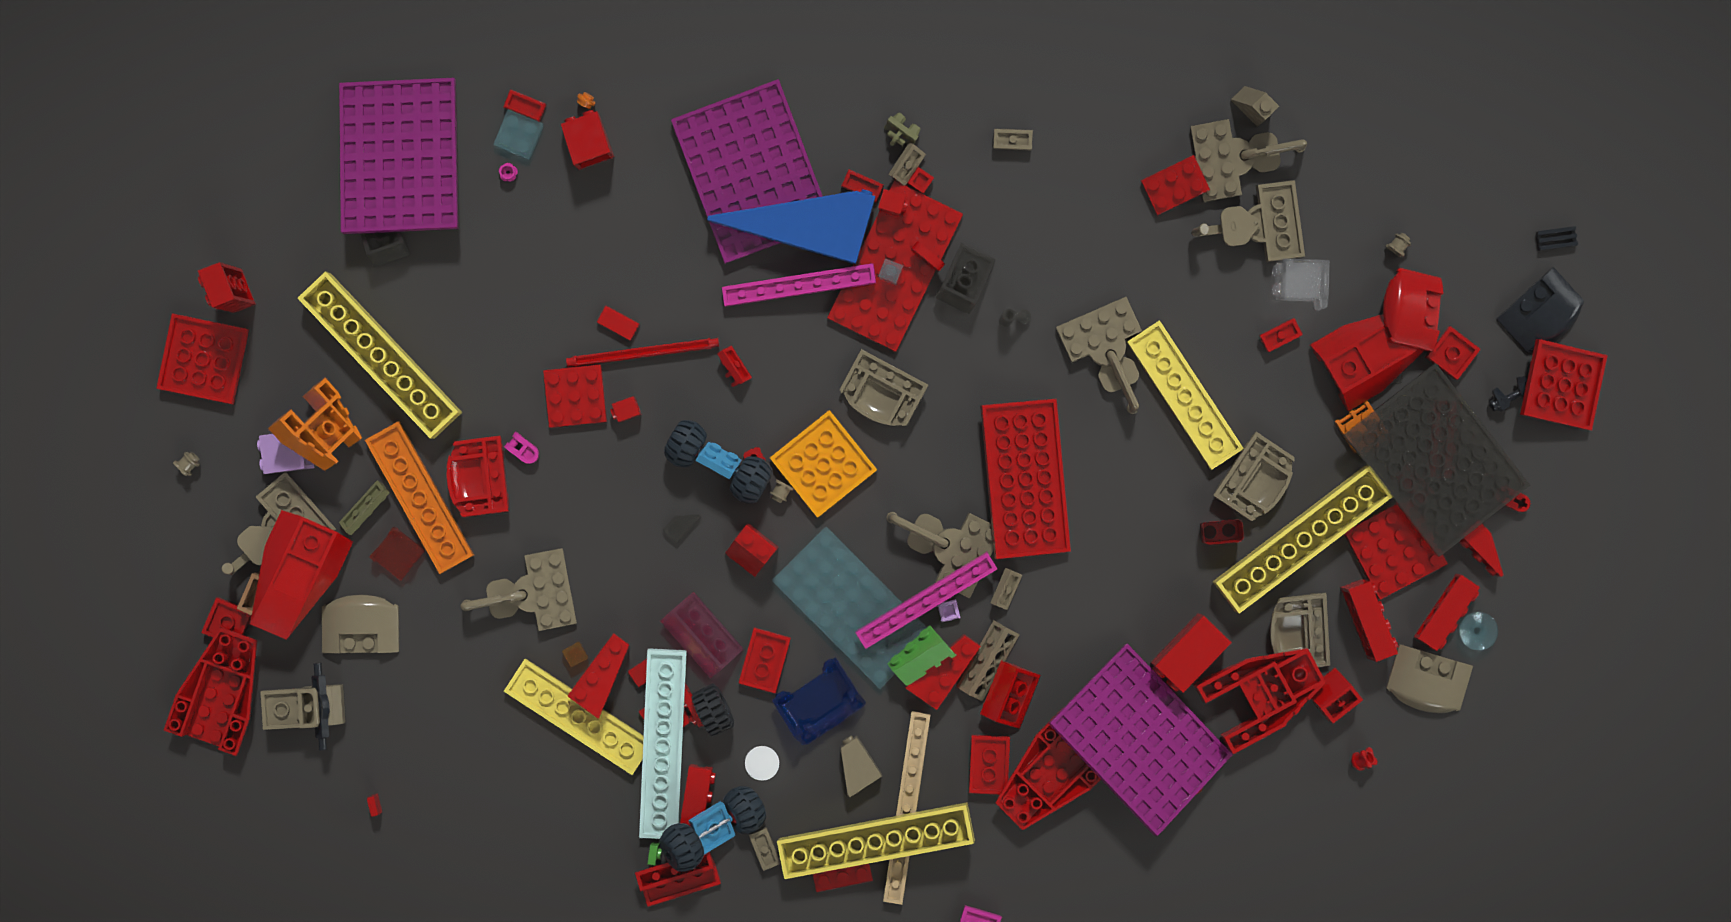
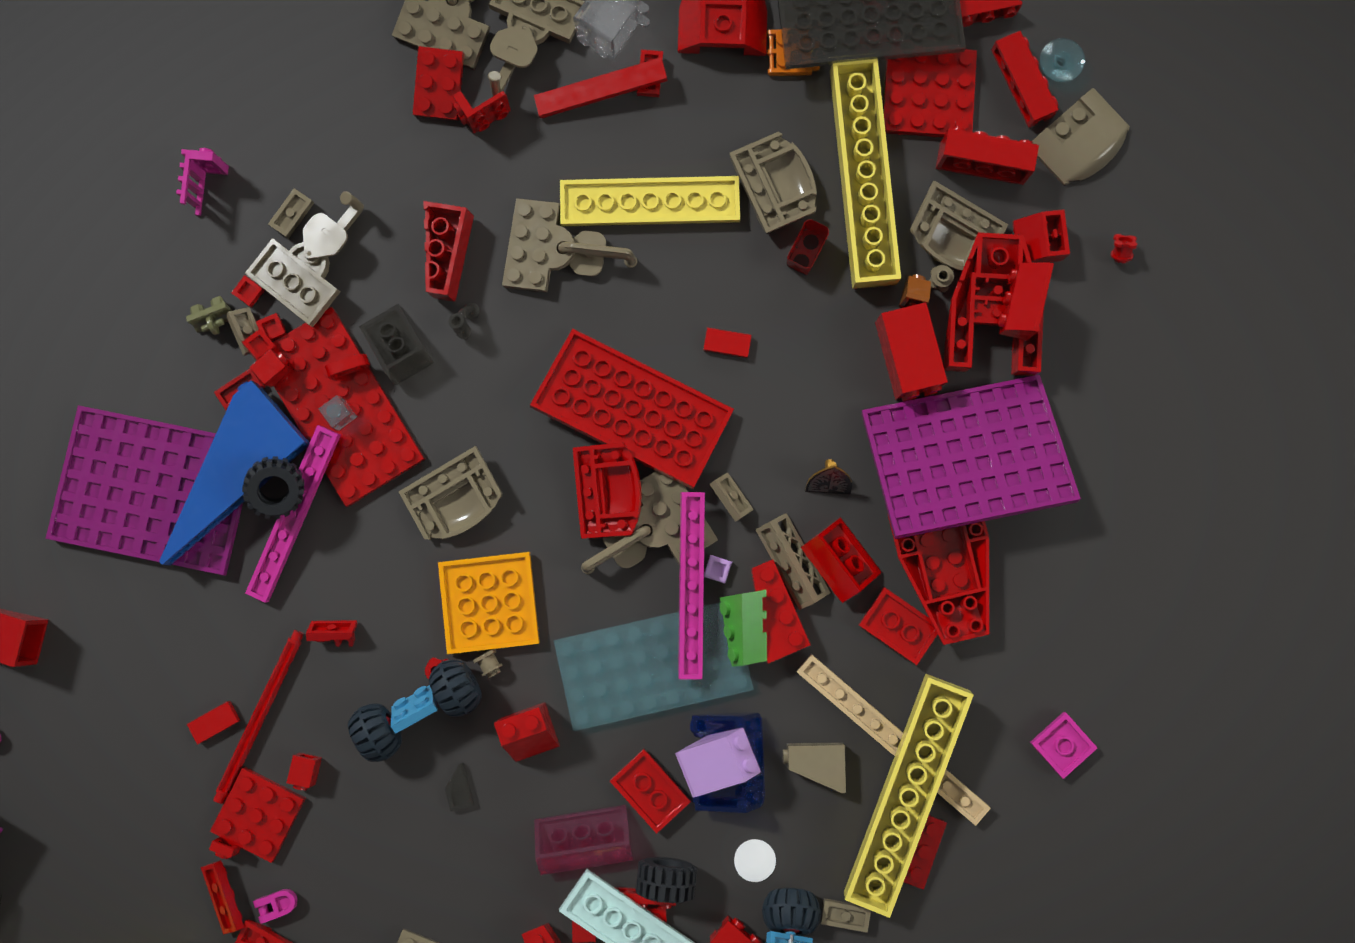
camera: 55 degrees left, 5 degrees down
(505, 408) = (222, 897): none -> red plate
(538, 388) = (224, 848): none -> red plate
(803, 277) = (270, 506): none -> black tyre
(816, 695) = (718, 762): none -> lavender slope
(903, 182) = (258, 344): none -> red plate
(936, 145) = (248, 291): none -> red plate
(955, 498) = (607, 490): none -> red slope
(972, 176) = (299, 274): none -> plate
(1012, 56) = (197, 165): none -> dark pink plate
(1058, 269) = (445, 247): none -> red wedge
(1062, 651) = (830, 480): none -> shield
(1116, 516) = (727, 342): none -> red tile
(1165, 222) = (484, 114): none -> red bracket
(1237, 629) = (915, 291): none -> dark orange slope
(1246, 306) = (600, 88): none -> red tile
(1254, 637) = (937, 282): none -> dark tan brick
(1276, 711) = (1025, 299): none -> red slope

